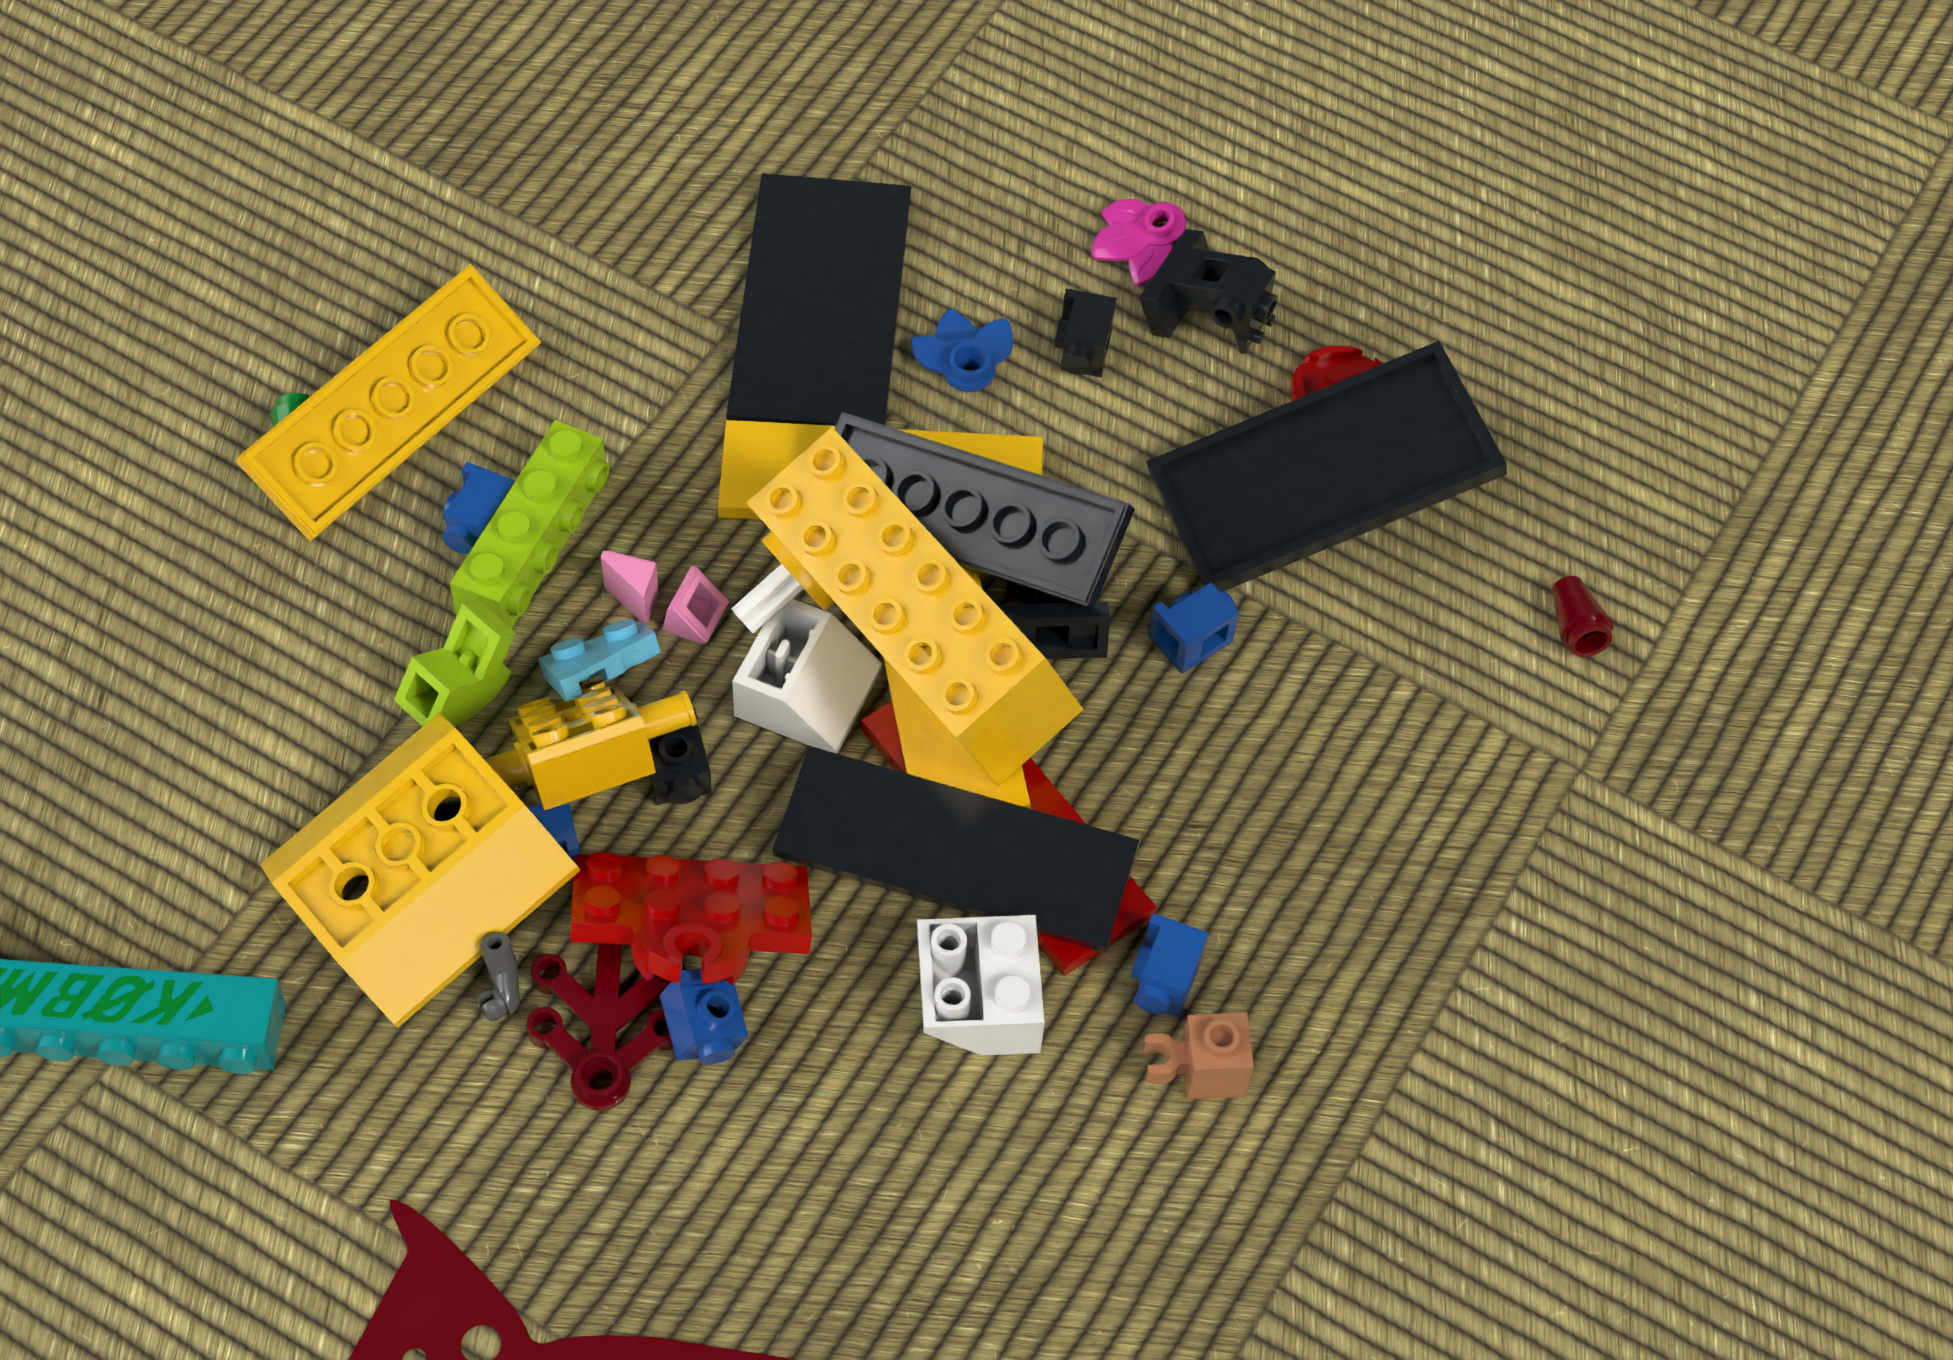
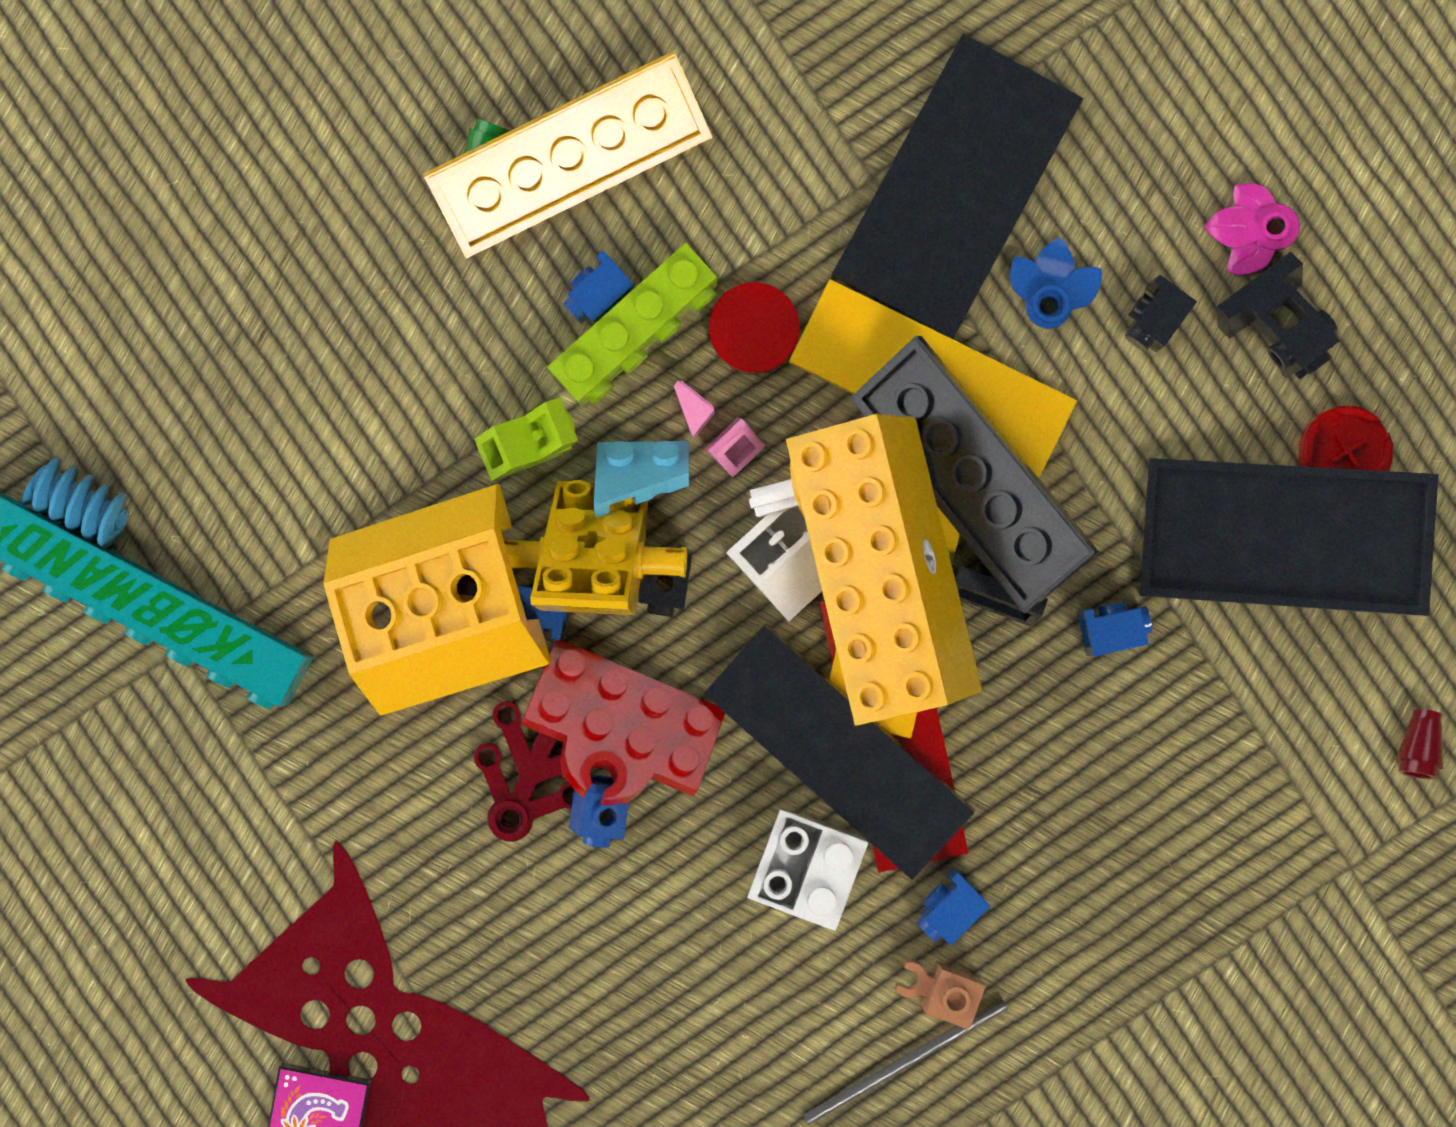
camera: 30 degrees right, 30 degrees up
(503, 973) = (468, 720): dark grey arm -> none
(665, 495) = (754, 328): none -> red tile
(1199, 1170) = (902, 1063): none -> dark grey axle

